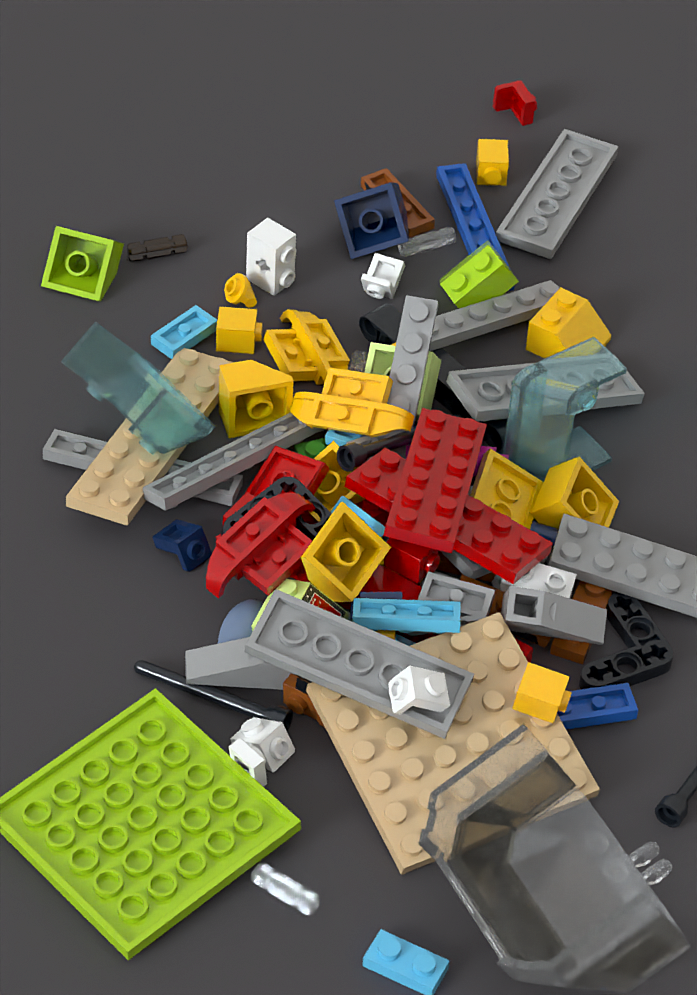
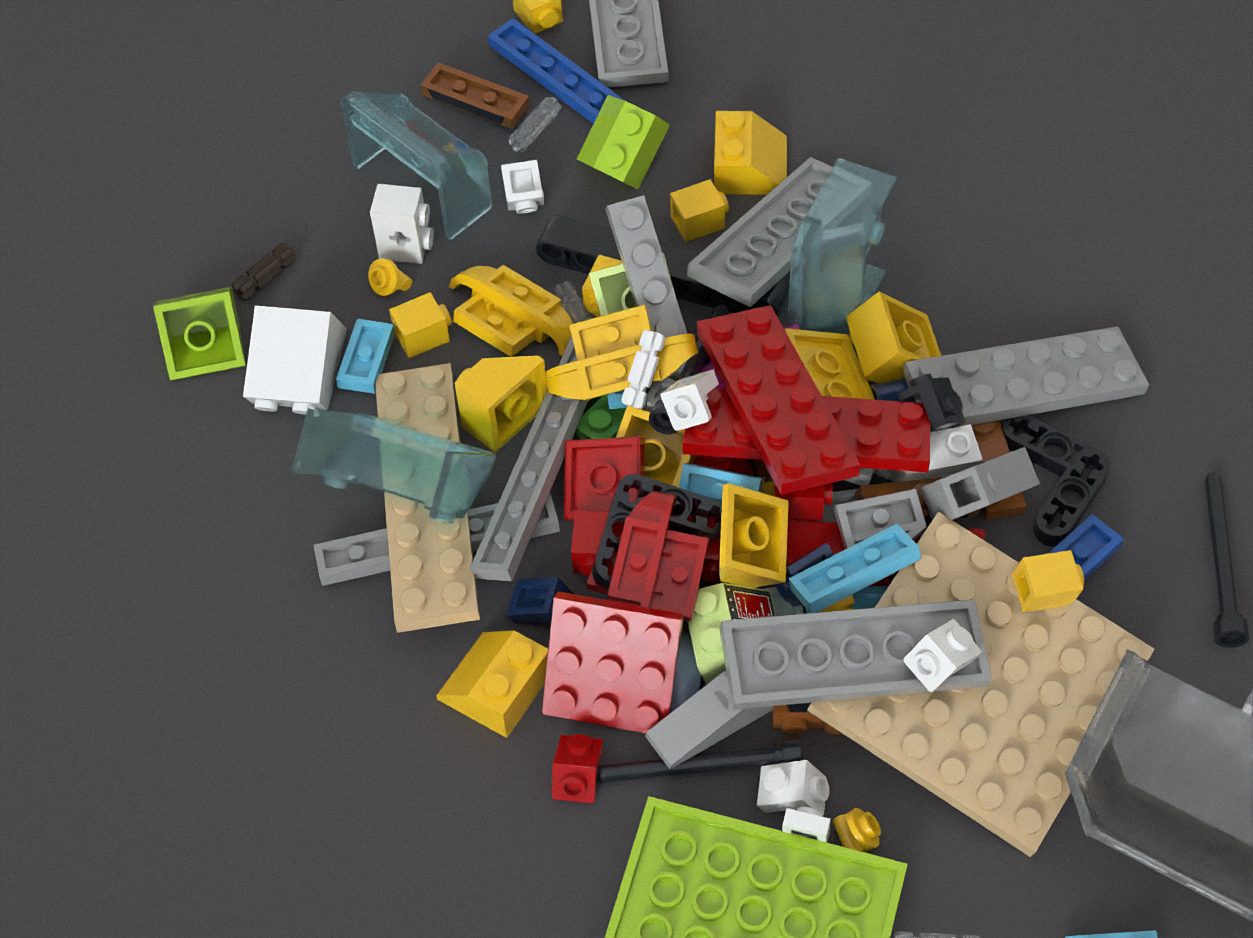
camera: 25 degrees left, 10 degrees up
(116, 575) = (497, 680): none -> yellow slope
(123, 649) = (576, 768): none -> red bracket
(132, 304) = (293, 358): none -> white slope
(192, 590) = (611, 662): none -> plate
(289, 789) = (858, 830): none -> yellow plate
(311, 192) = (392, 123): none -> clear light blue windscreen
(356, 417) = (643, 369): none -> white axle
(365, 448) = (687, 400): none -> white bracket
(373, 219) = (478, 121): dark blue slope -> none
(490, 314) = (670, 164): light grey plate -> none
(500, 348) = (698, 210): none -> yellow brick
(558, 542) = (939, 399): none -> black bracket

